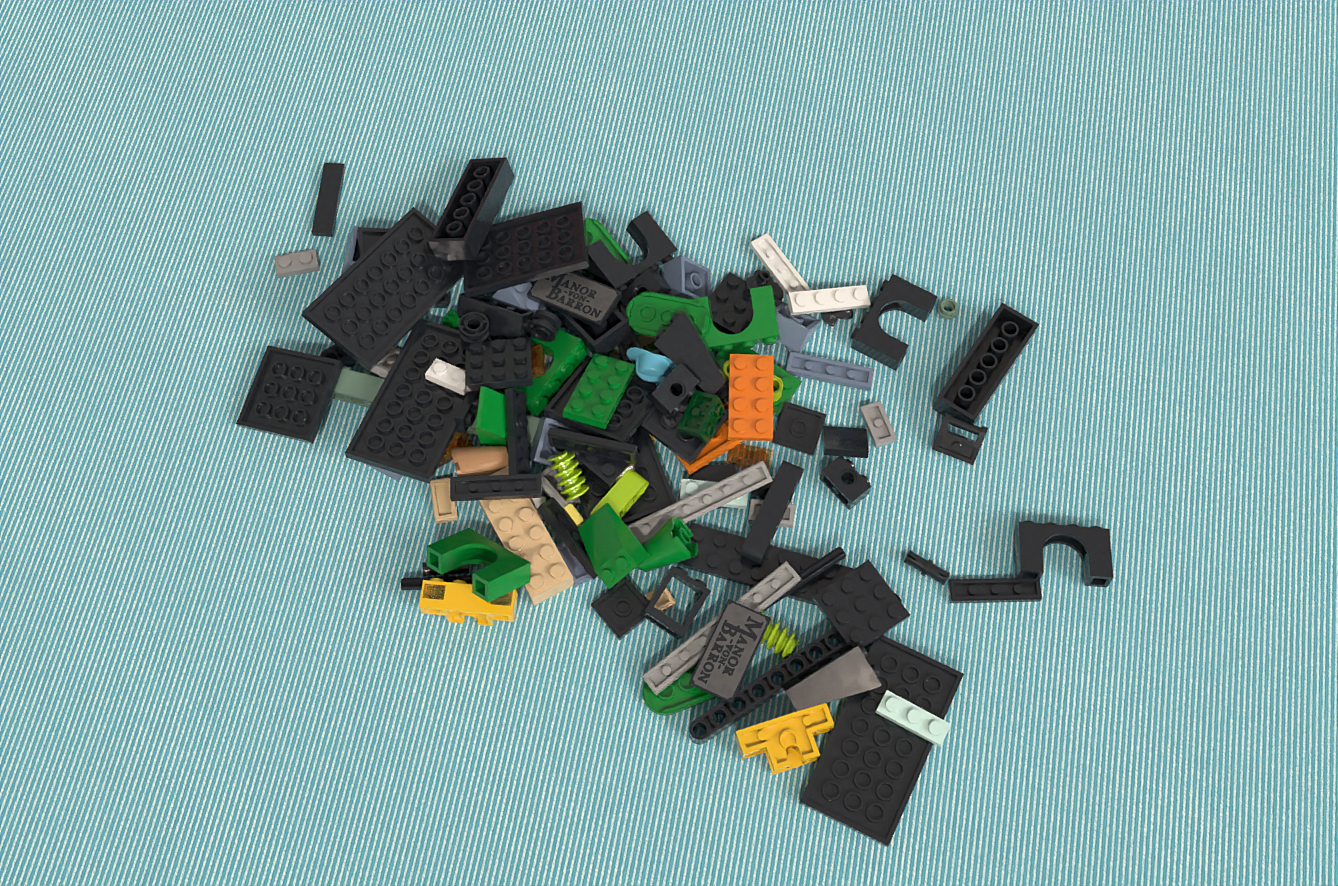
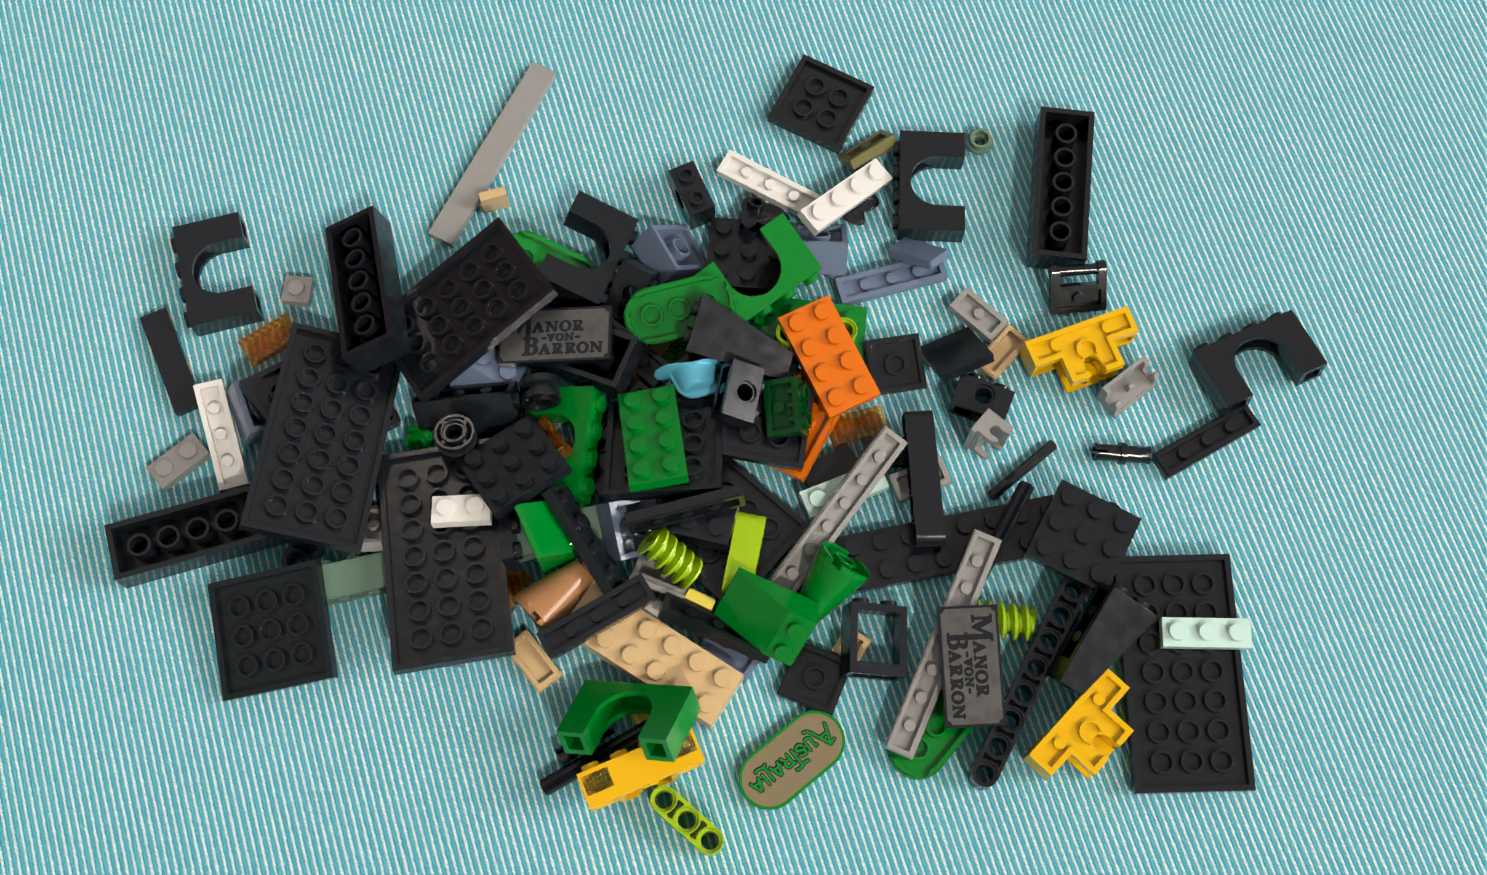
camera: 30 degrees left, 5 degrees up
(267, 310) = (182, 538): none -> black brick
(331, 256) = (221, 435): none -> white plate
(382, 135) = (195, 247): none -> black arch
(390, 214) = (267, 340): none -> clear orange plate
(432, 192) = (298, 291): none -> light grey plate
(477, 644) = (679, 807): none -> lime beam
(575, 653) = (791, 760): none -> dark tan tile
(590, 193) = (494, 199): none -> tan tile
(607, 164) = (492, 154): none -> light grey tile
(723, 250) = (691, 195): none -> black brick
(834, 501) = (990, 430): none -> light grey hinge
(849, 232) = (821, 104): none -> black plate
(850, 543) = (1022, 470): none -> black bar
(857, 361) = (918, 253): none -> sand blue tile
(869, 277) = (873, 146): none -> olive plate
(881, 458) = (1005, 350): none -> tan tile
(937, 483) = (1083, 351): none -> yellow piece
(957, 524) = (1127, 387): none -> light grey hinge

